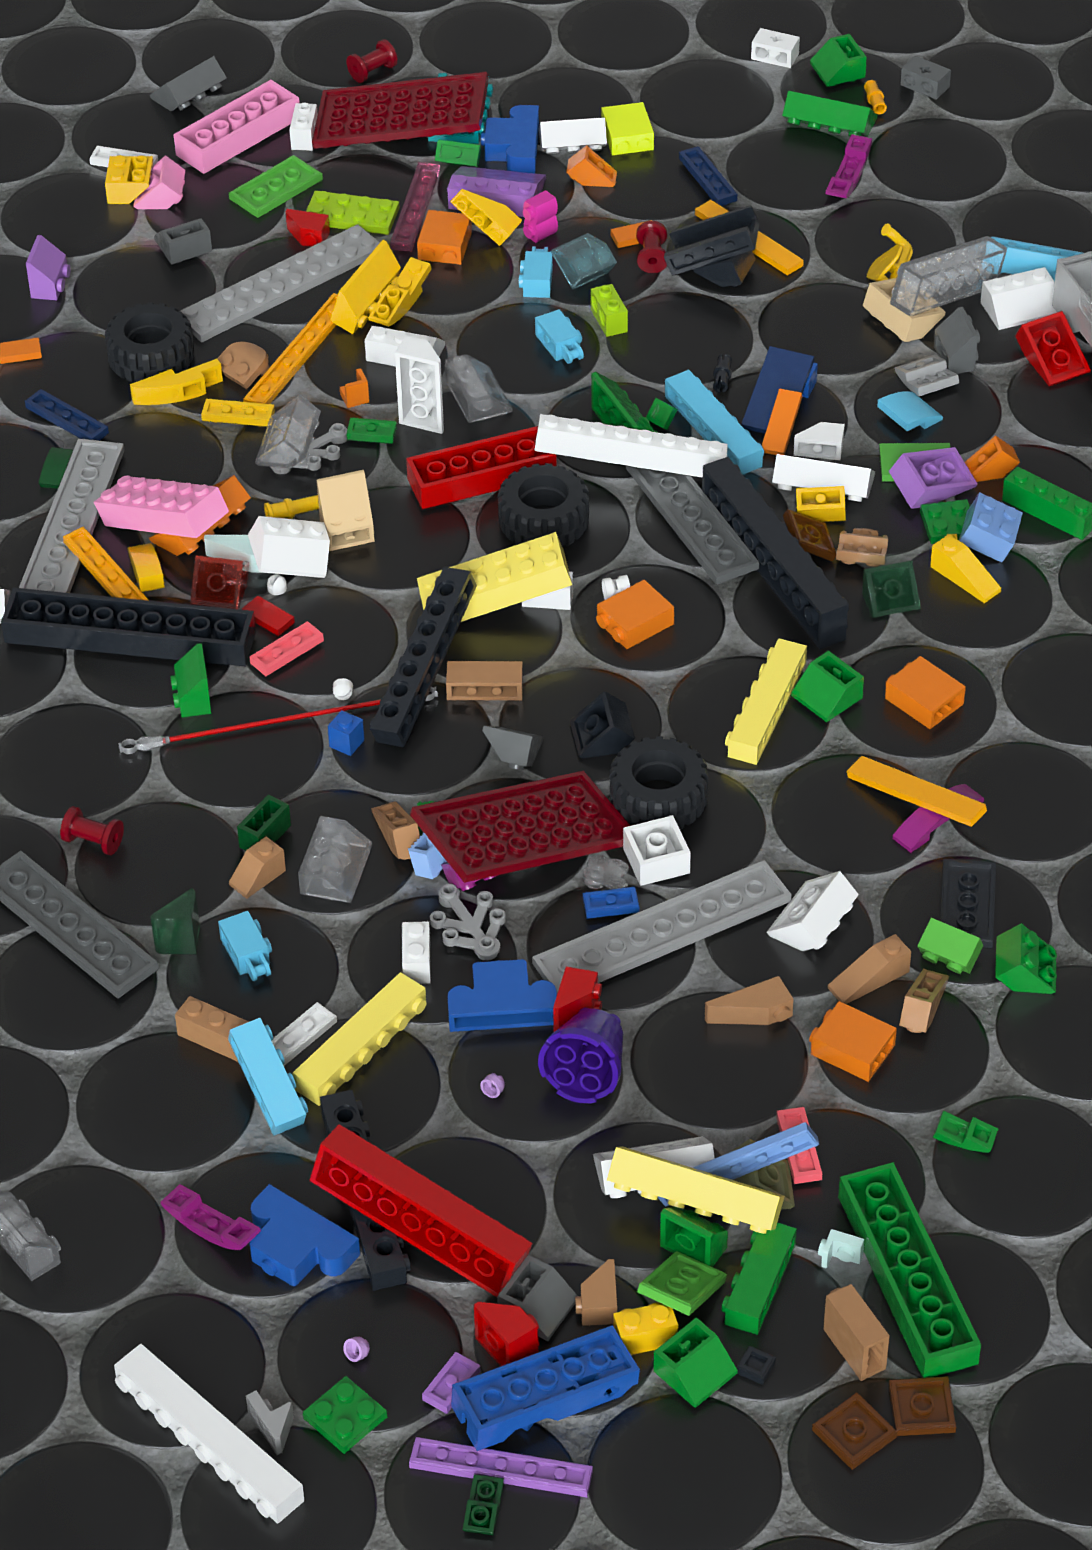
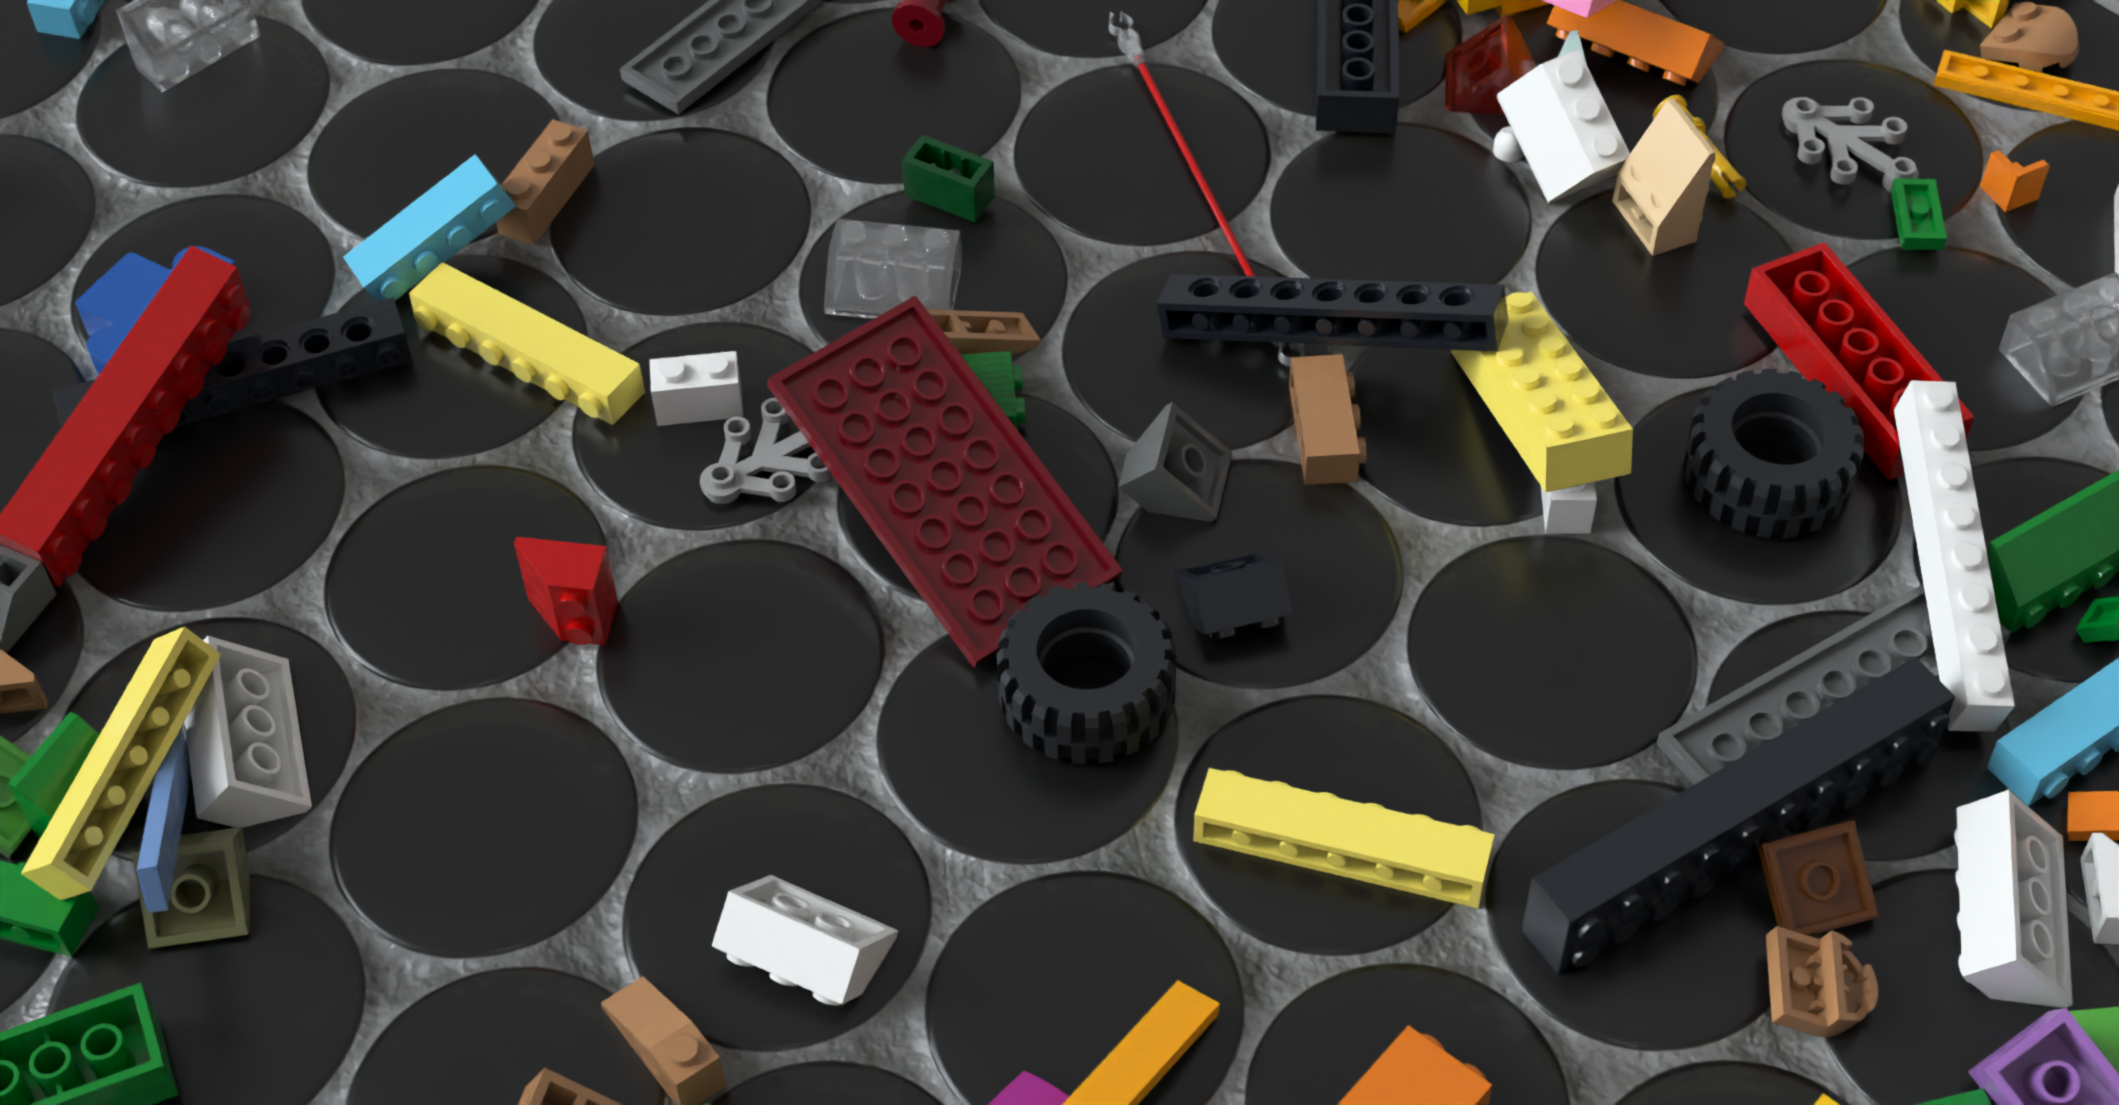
camera: 85 degrees right, 5 degrees up
(177, 926) = (738, 109): clear green slope -> none
(191, 684) = (1246, 69): green slope -> none
(207, 1222) = (229, 201): magenta slope -> none
(237, 412) = (1905, 47): yellow plate -> none
(246, 945) = (711, 194): medium azure brick -> none
(258, 867) = (876, 191): medium nougat slope -> none
(269, 615) = (1435, 142): red tile -> none
(286, 648) = (1358, 169): coral plate -> none
(289, 434) = (1846, 99): clear slope -> none
(304, 1031) = (547, 279): white tile -> none
(342, 689) = (1274, 245): white hinge -> none
(346, 733) = (1169, 250): blue brick -> none
(419, 385) = (2007, 222): white slope -> none
(488, 1083) = (431, 514): lavender hinge -> none
(501, 999) = (609, 497): blue brick -> none
(584, 1056) = (458, 610): dark purple cone -> none
(605, 873) = (897, 631): clear plate -> none
(610, 902) = (823, 637): blue plate -> none
(613, 586) = (1597, 587): white wheel -> none
(635, 614) = (1534, 617): orange brick -> none
(656, 850) = (929, 682): white brick -> none
(667, 925) = (769, 722): light grey plate -> none
(753, 1005) = (583, 863): medium nougat slope -> none
(804, 1165) = (266, 942): coral plate -> none
(822, 503) = (1911, 893): yellow brick -> none
(829, 686) = (1389, 935): green slope -> none
(841, 1245) = (32, 999): light aqua bracket -> none
(852, 1041) = (493, 1014): orange brick -> none
(890, 589) = (1694, 1037): clear green slope -> none

